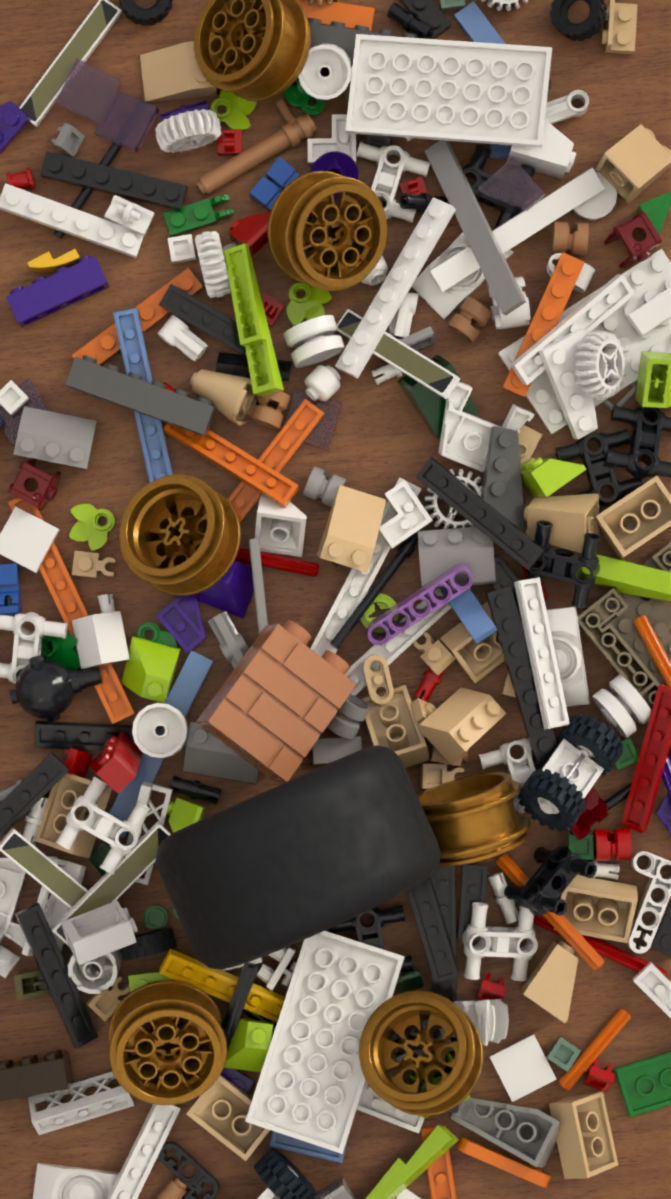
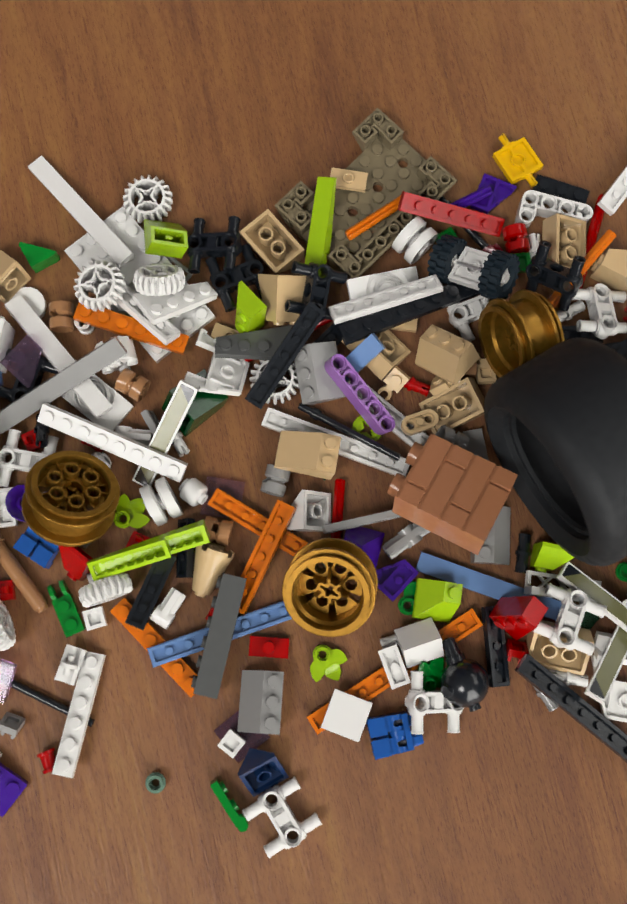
camera: 105 degrees left, 5 degrees down
(46, 264) = (116, 729): yellow slope -> none
(46, 485) = (302, 703): dark red piece -> none
(57, 291) = (138, 716): dark purple brick -> none
(75, 604) = (394, 666): none -> white plate
(88, 564) = (358, 661): tan plate -> none
(114, 181) = (42, 682): black plate -> none
(120, 456) = (269, 647): none -> red tile
(145, 730) = (496, 580): white wheel -> none
(410, 515) = (291, 411): white plate -> none
(577, 290) = (93, 281): none -> white gear
(638, 250) = (52, 272): dark red piece -> none

